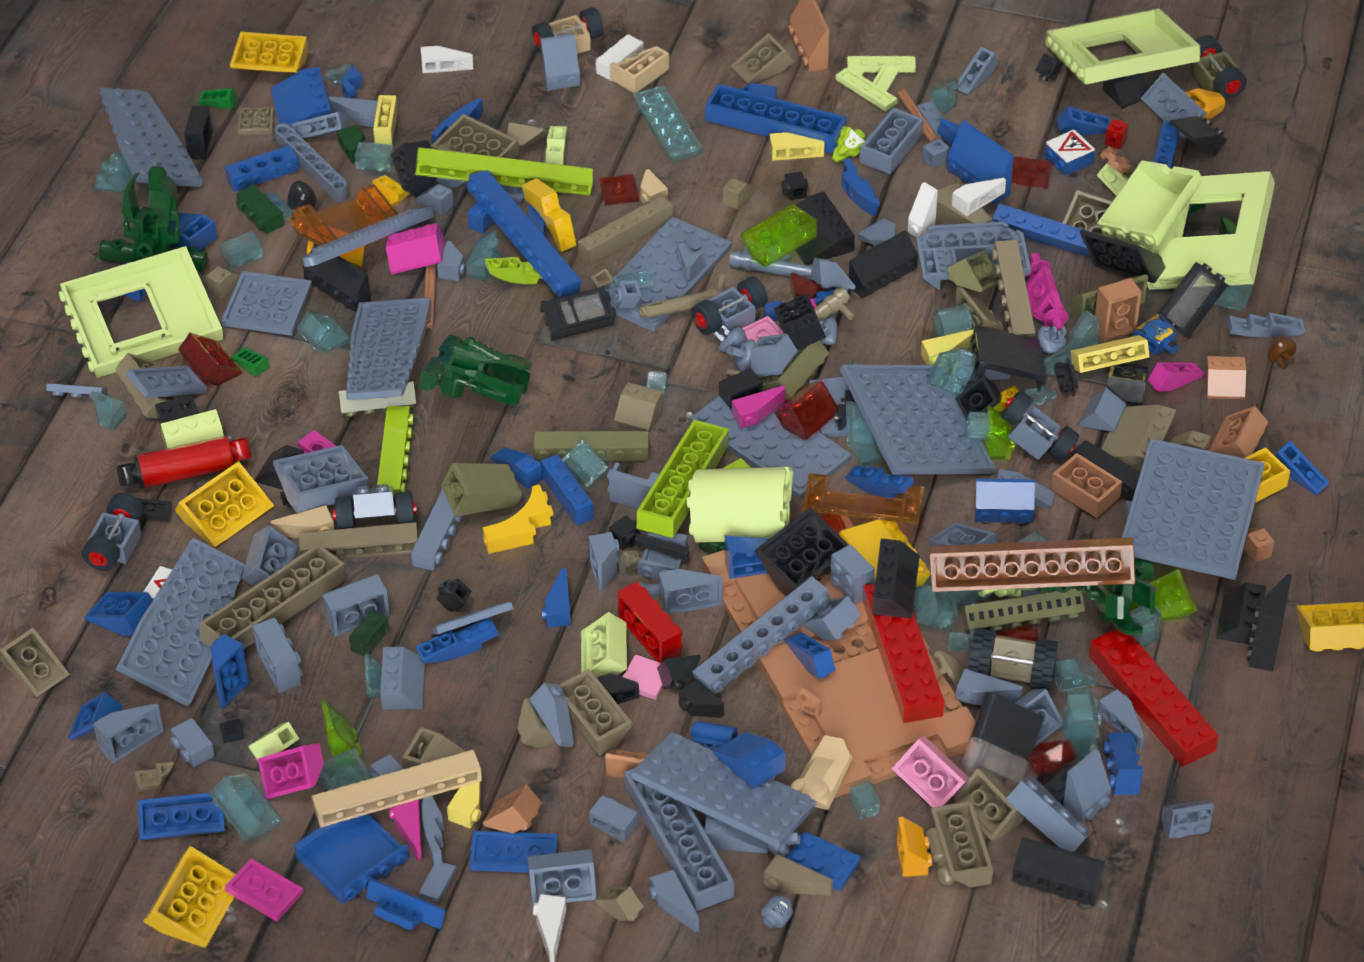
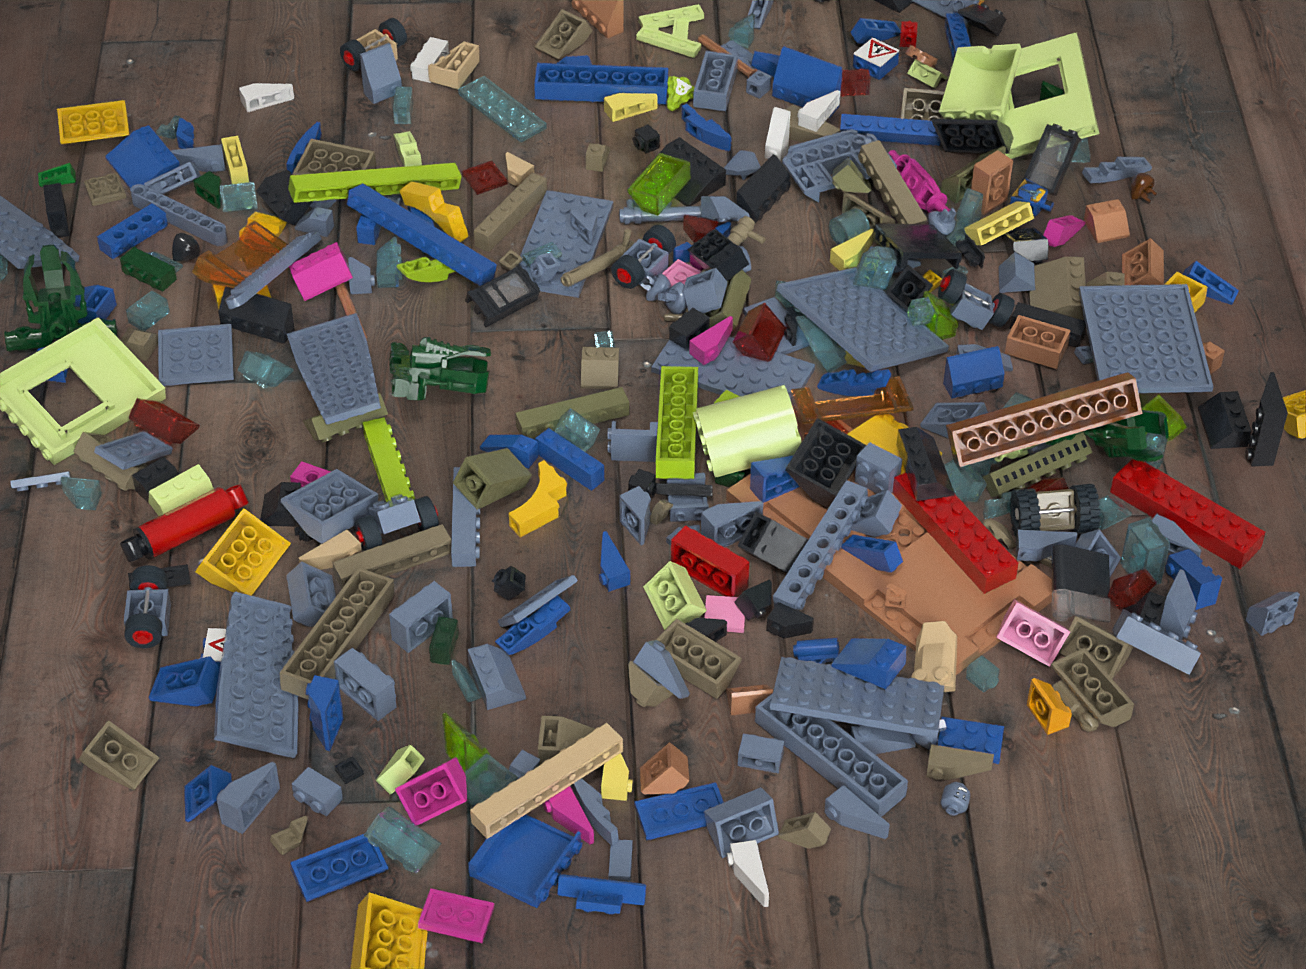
camera: 20 degrees left, 0 degrees up
(261, 362) = (212, 416): green slope -> none
(526, 134) = (376, 143): dark tan slope -> none
(571, 98) = (403, 105): none -> clear light blue brick
(717, 617) = (772, 542): none -> slope
(1058, 871) = (1188, 690): black slope -> none

